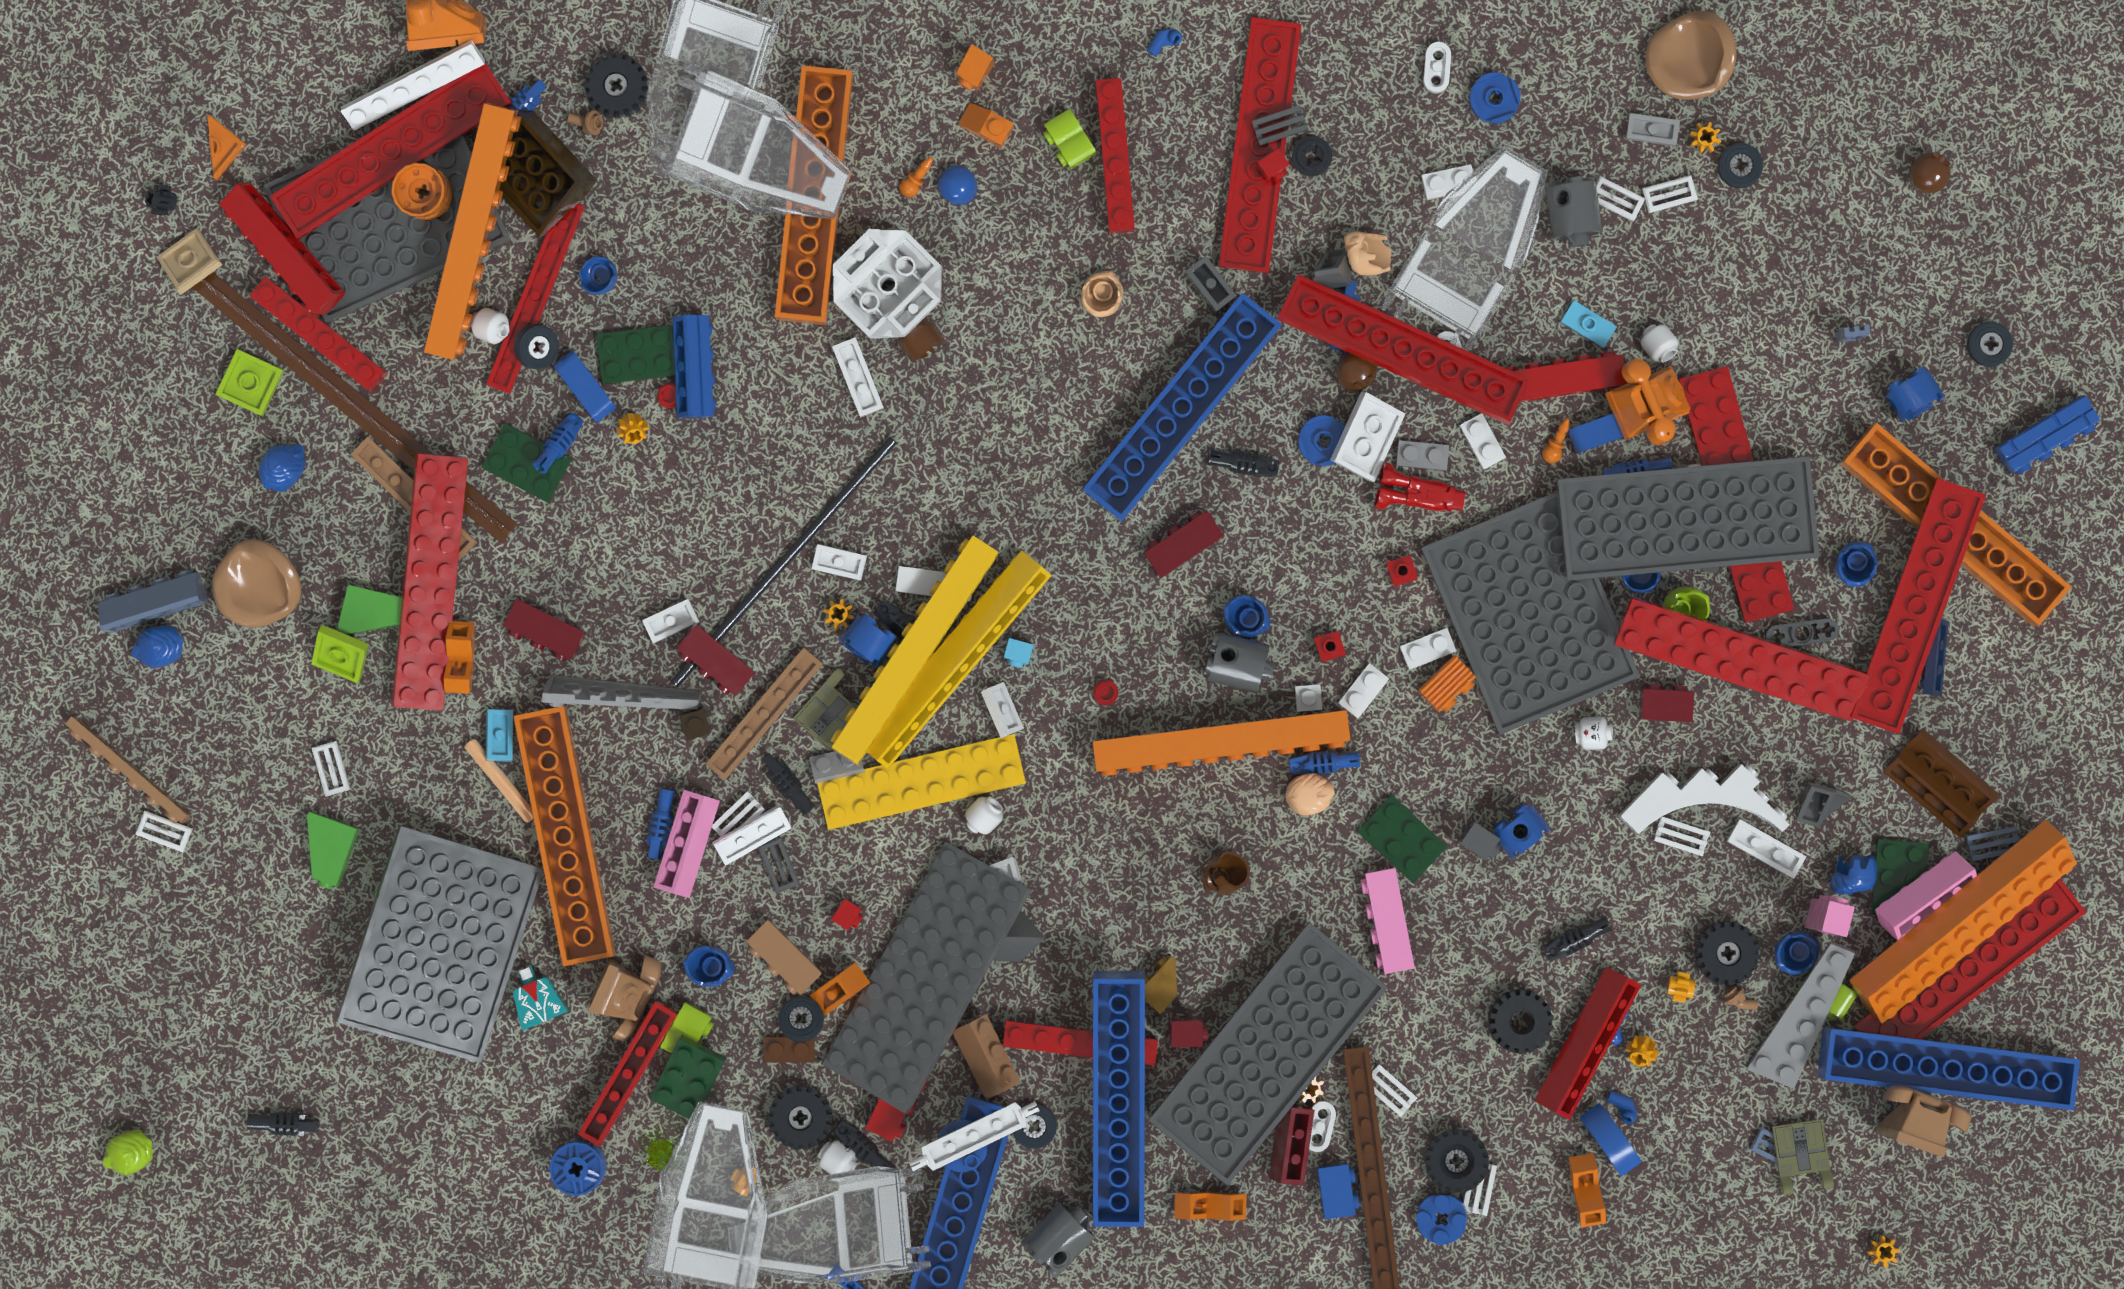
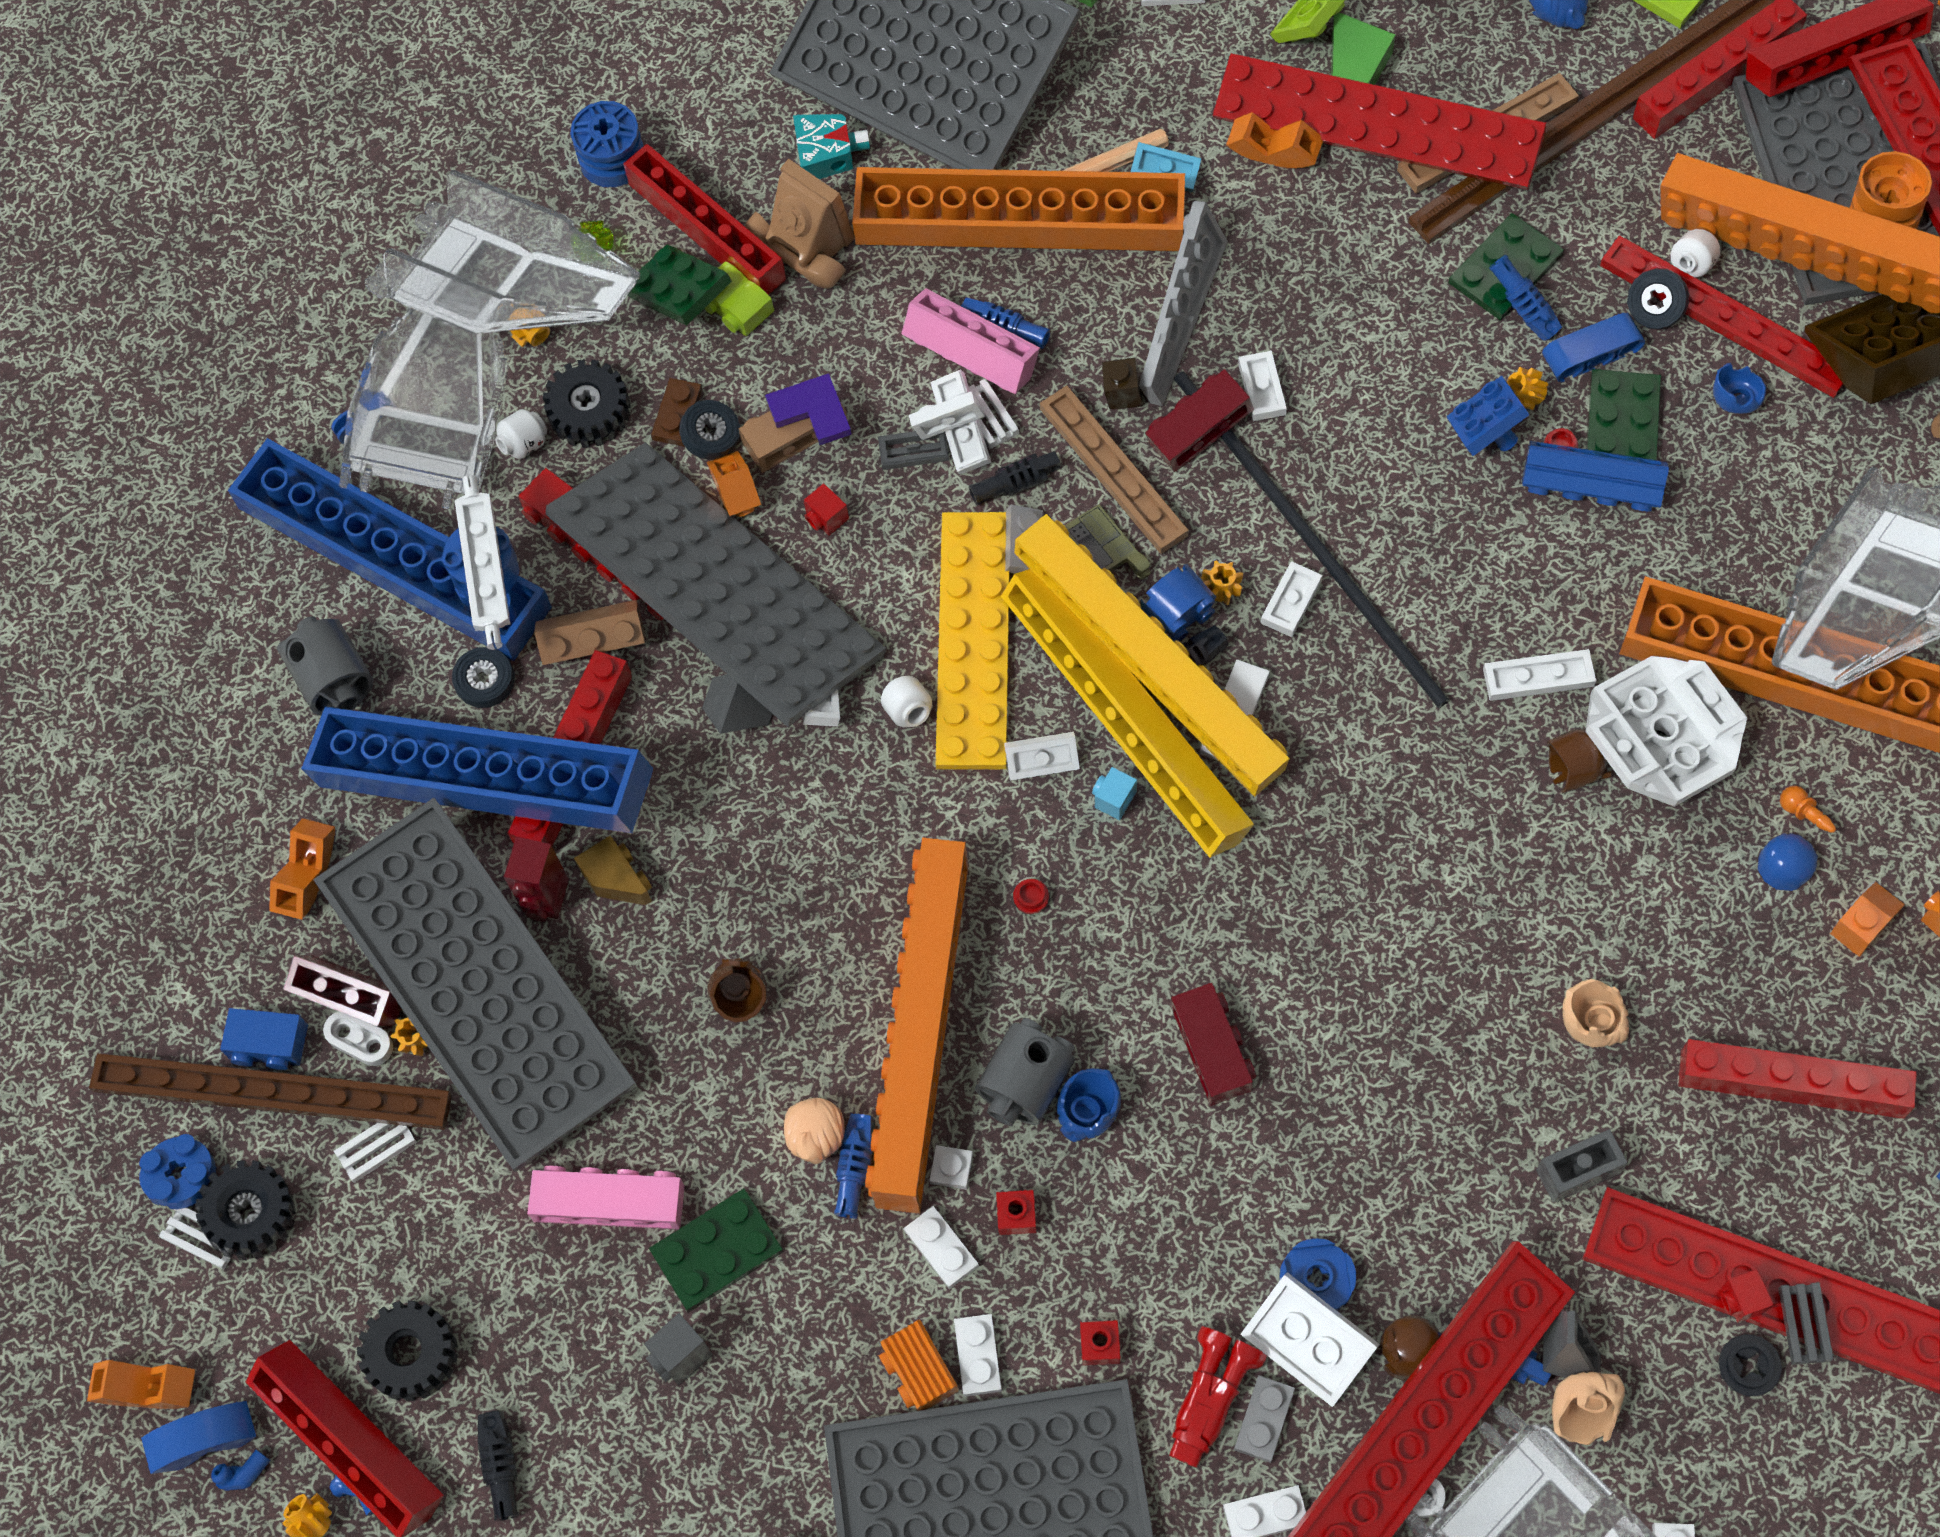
camera: 115 degrees right, 20 degrees down
(544, 630) = (1285, 240): dark red brick -> none
(667, 444) = (1489, 417): none -> blue plate
(708, 966) = (809, 336): blue hair -> none
(760, 854) = (946, 415): none -> white plate
(767, 944) = (811, 400): none -> dark purple tile
(863, 1147) = (525, 468): black hinge -> none
(1069, 139) = (1830, 1023): lime brick -> none
(1181, 407) = (1411, 1086): blue brick -> none
(1245, 463) = (1308, 1158): black hinge -> none
(1523, 815) = (674, 1415): blue brick -> none

